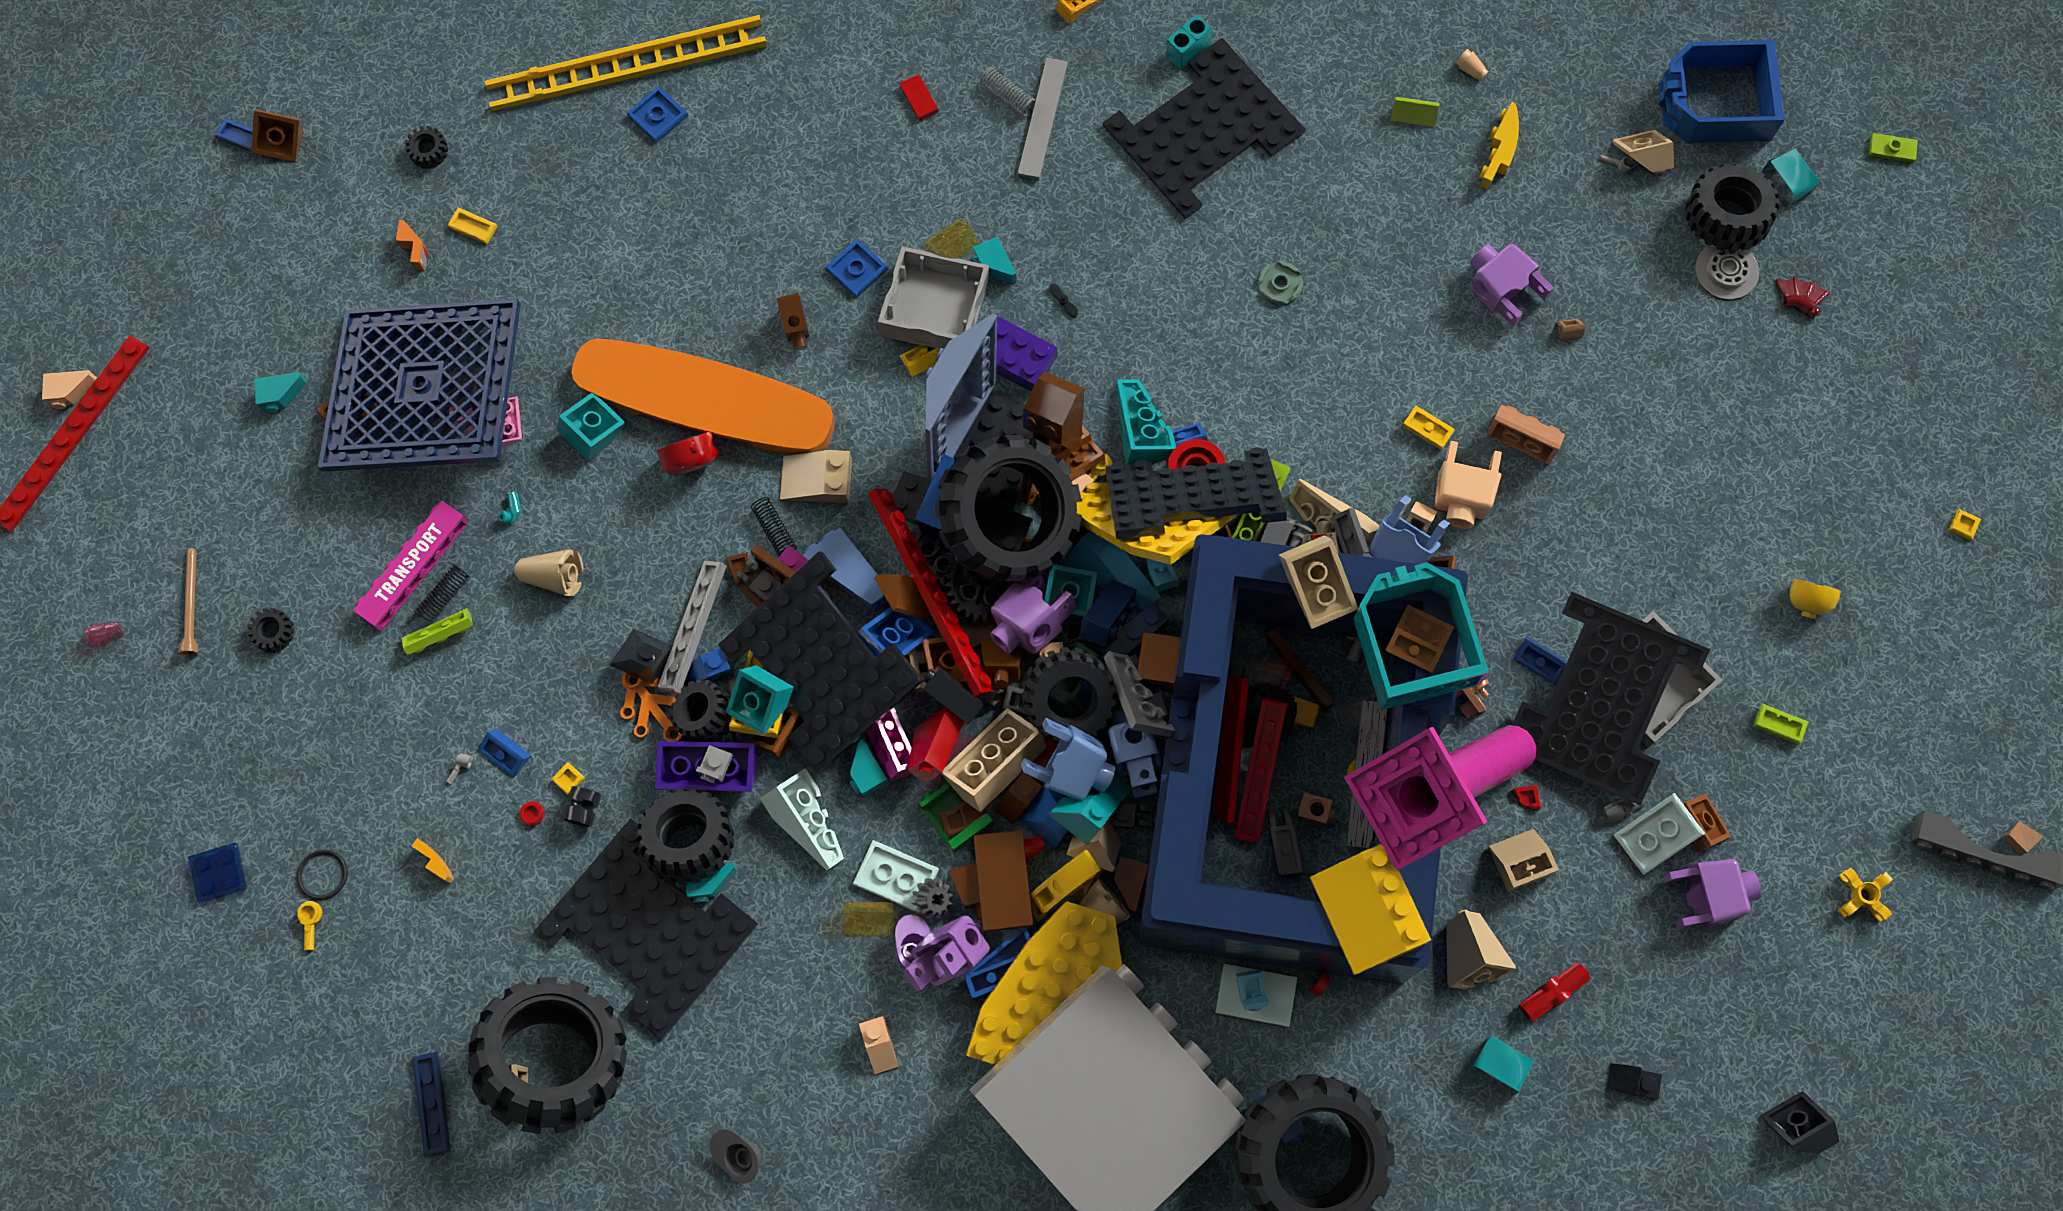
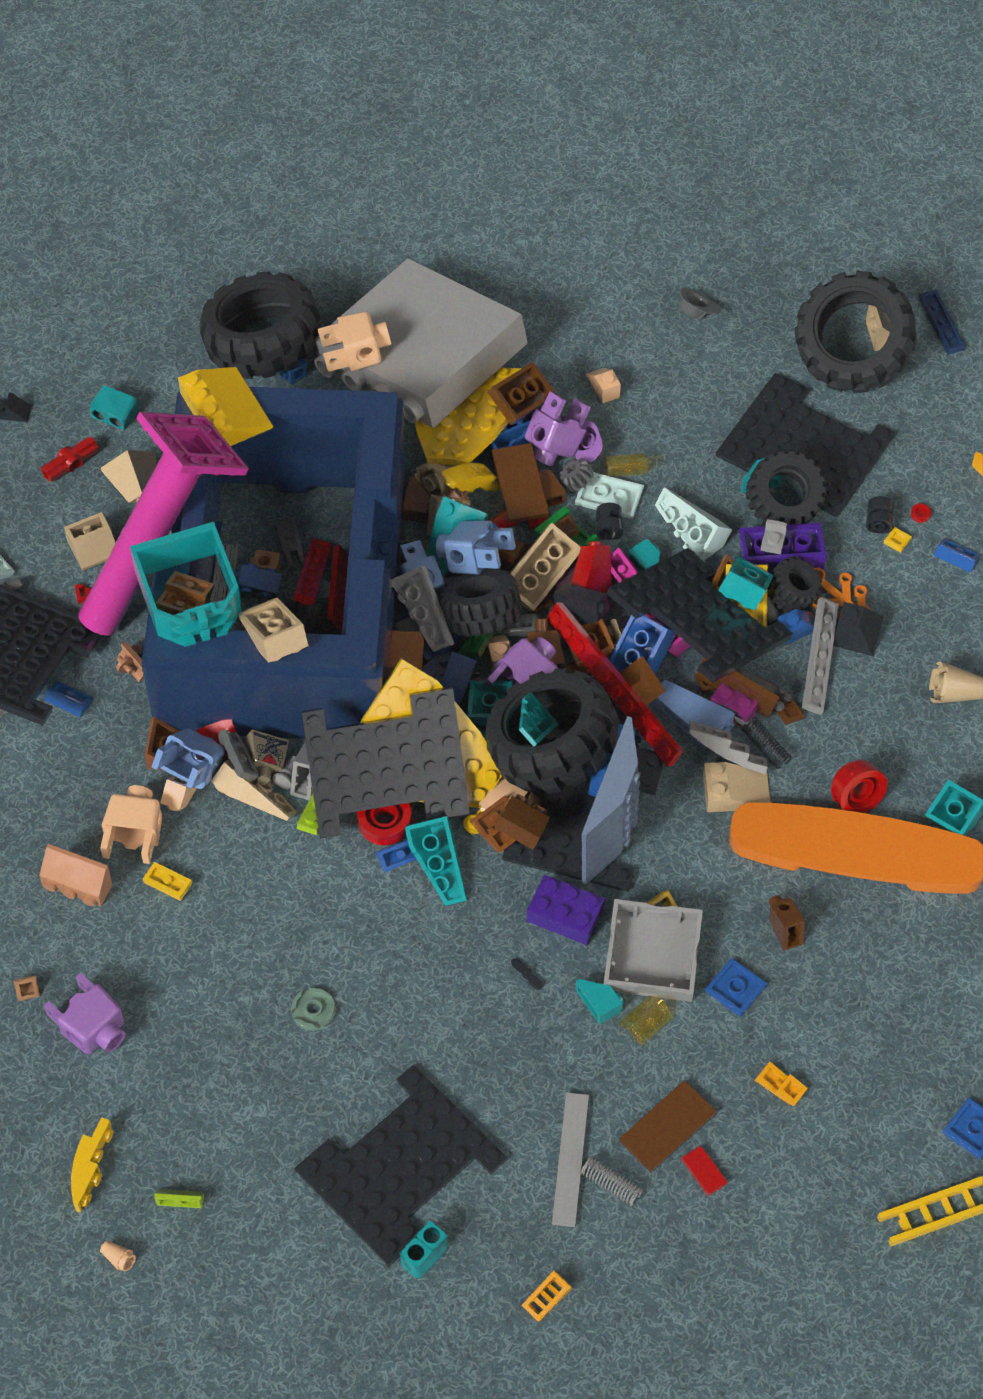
camera: 170 degrees right, 15 degrees down
(817, 511) = (722, 744): none -> light grey slope
(831, 170) = (780, 1084): none -> light orange slope
(902, 828) = (609, 521): none -> black wheel
(946, 139) = (667, 1126): none -> reddish brown tile
(985, 989) = (521, 393): none -> reddish brown slope
(1026, 501) = (535, 720): none -> teal wedge
(1190, 1078) = (360, 342): none -> light nougat piece
(1324, 780) = (257, 580): none -> blue brick

